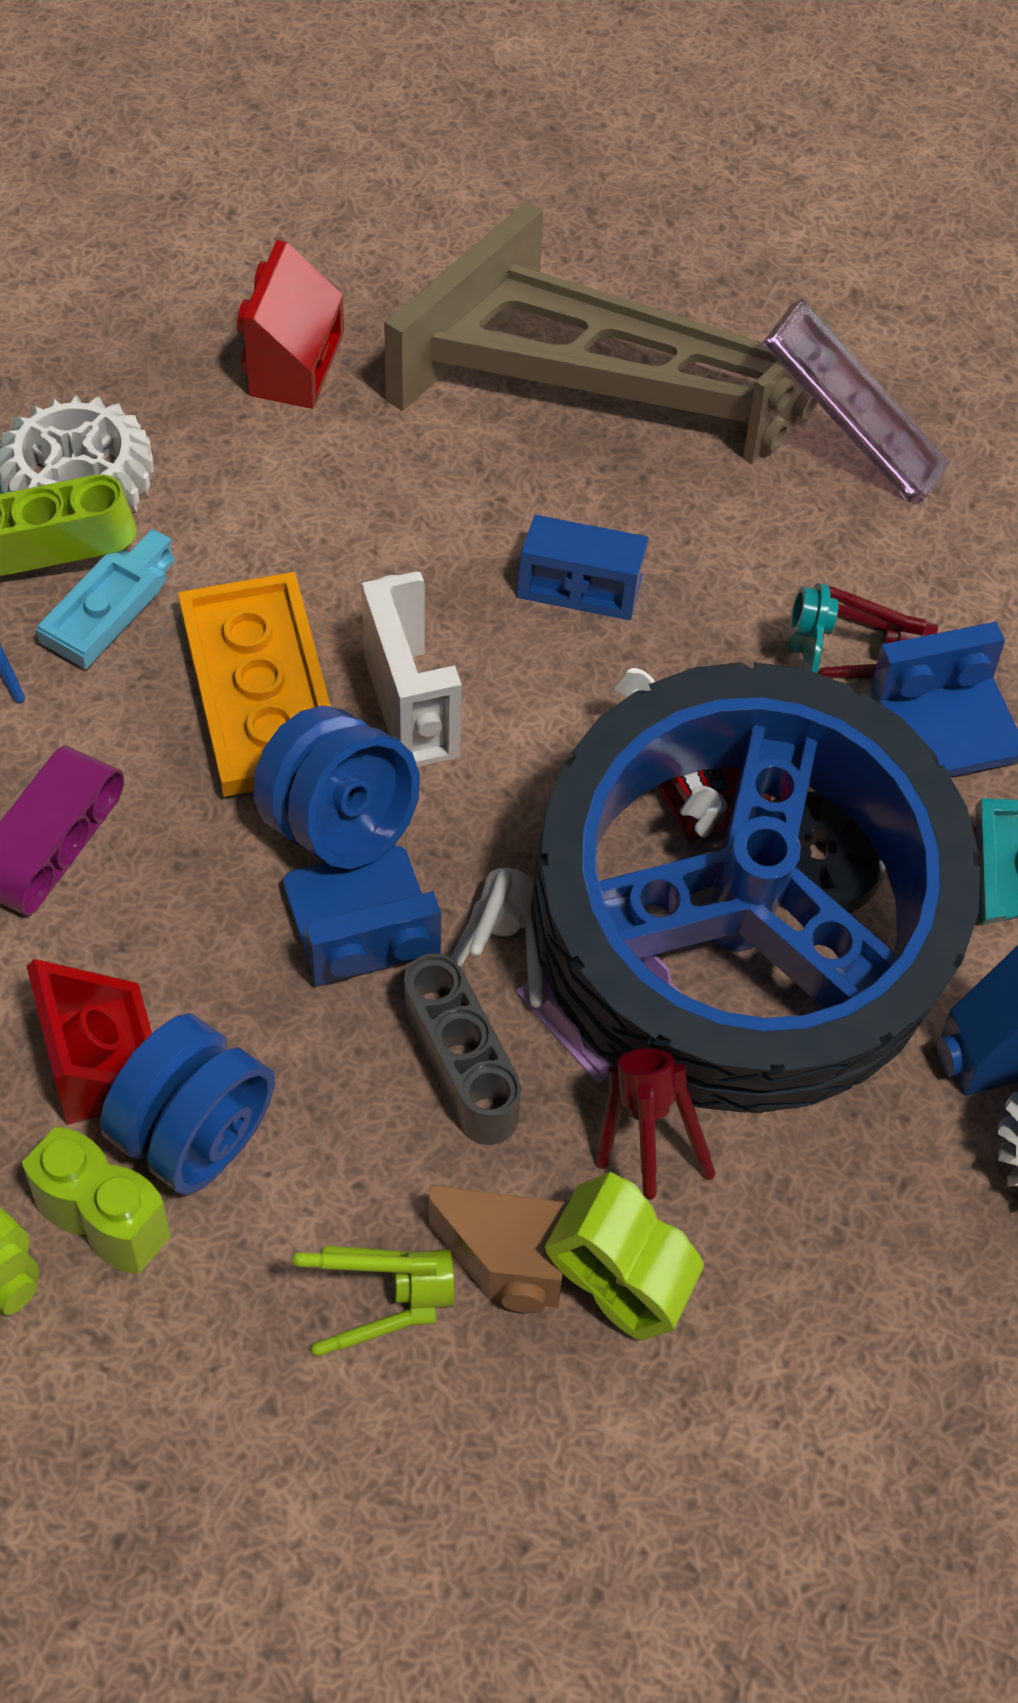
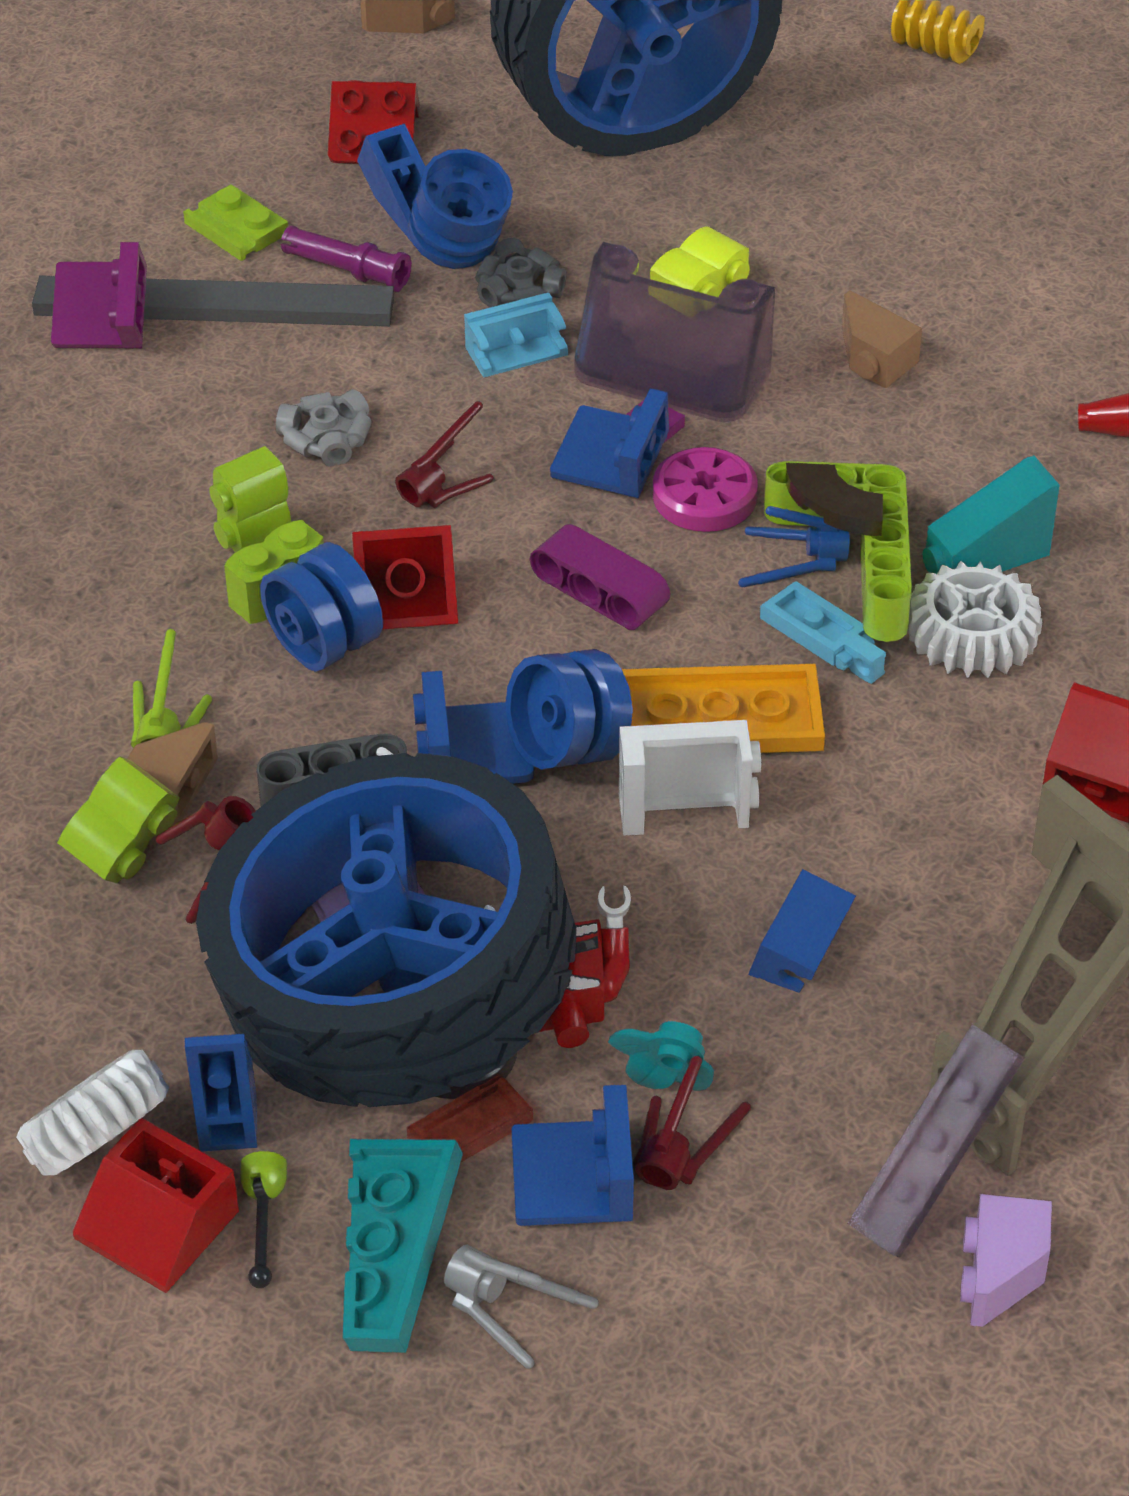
camera: 105 degrees right, 10 degrees down
(933, 376) = (1009, 1254): none -> lavender slope

